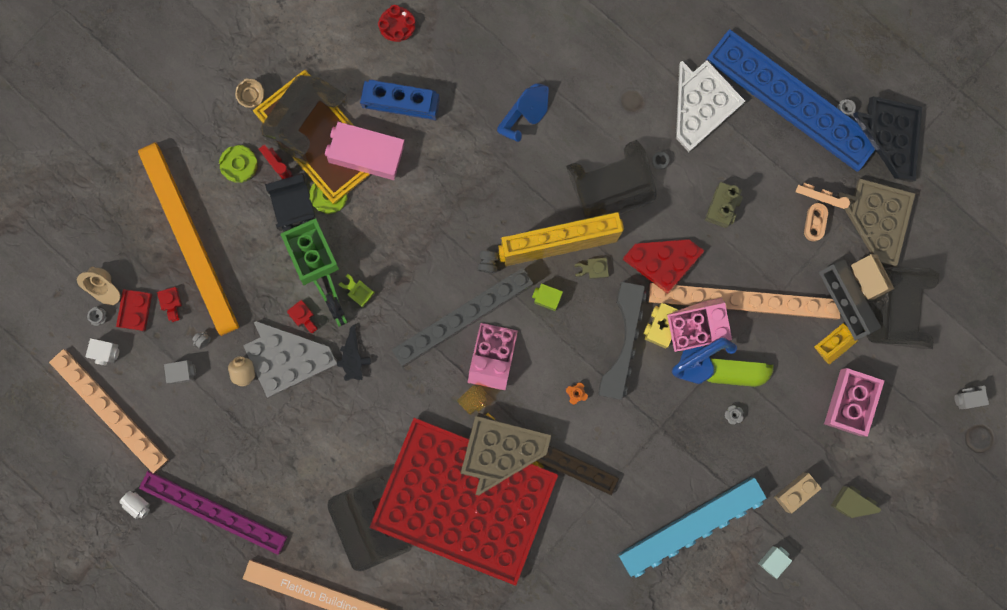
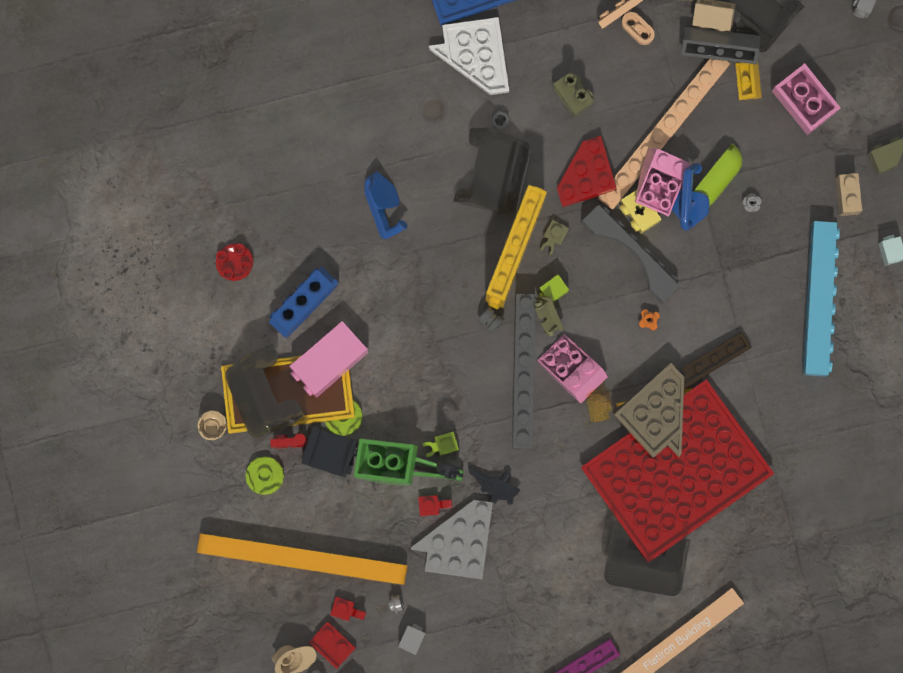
camera: 55 degrees left, 0 degrees up
(241, 371) = (446, 585): tan head -> none
(526, 299) = (545, 309): none -> olive hinge

